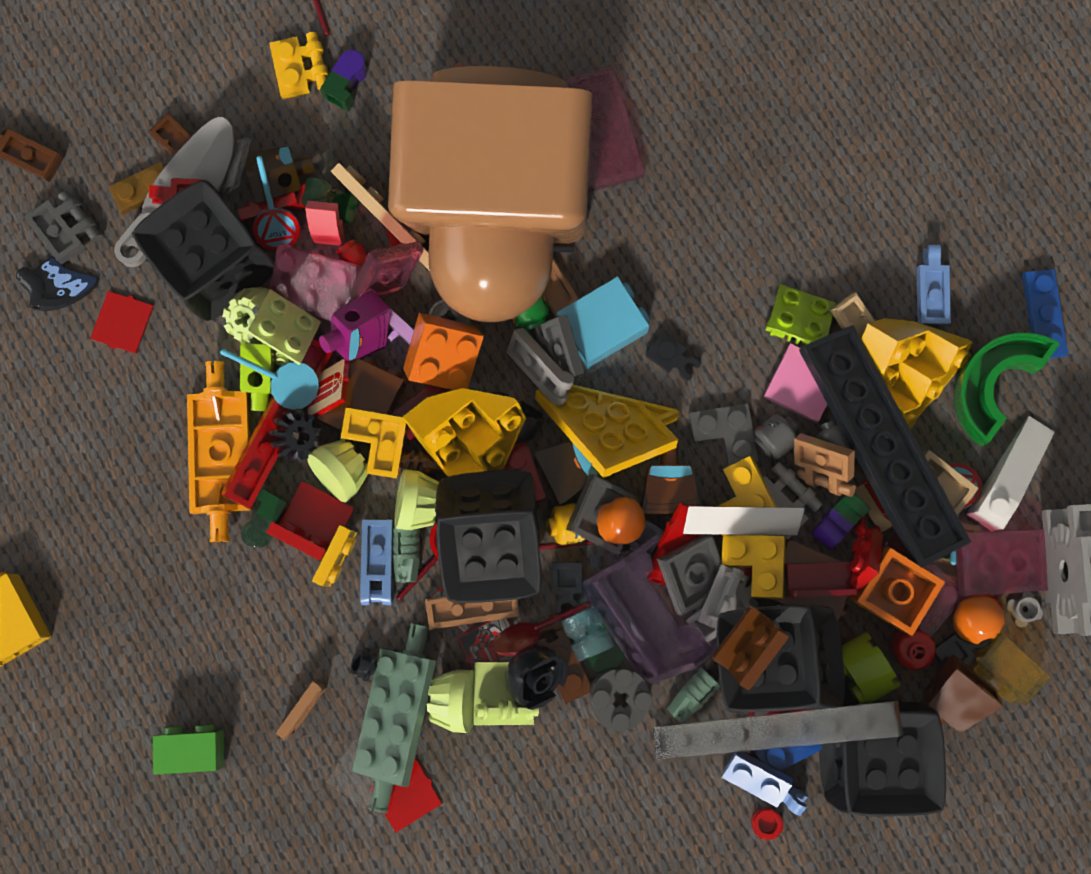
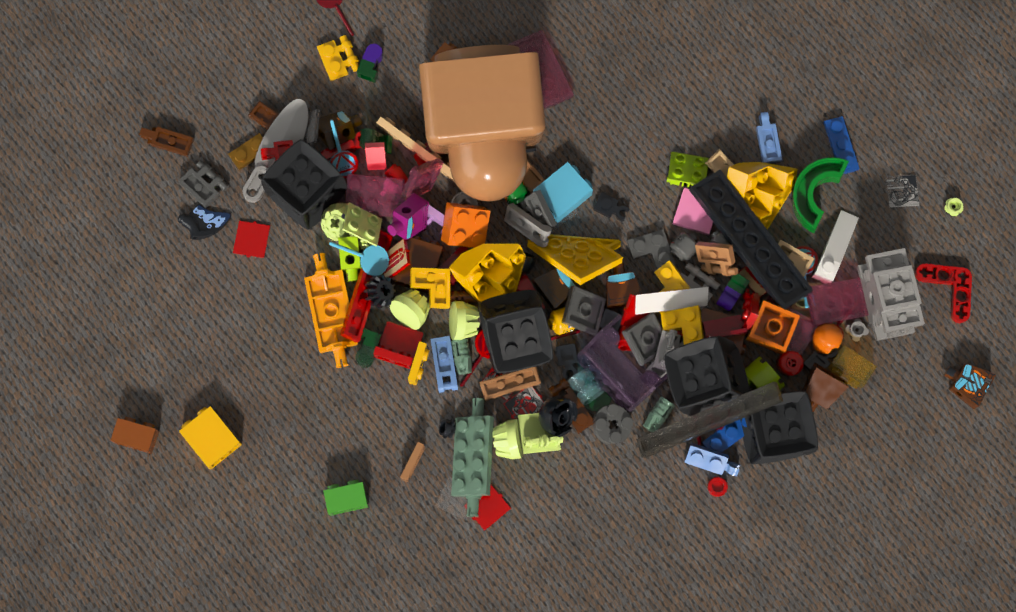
camera: 15 degrees left, 5 degrees down
(524, 635) = (544, 394): dark red piece -> none
(621, 521) = (595, 312): orange hair -> none
(750, 646) = (685, 366): reddish brown bracket -> none

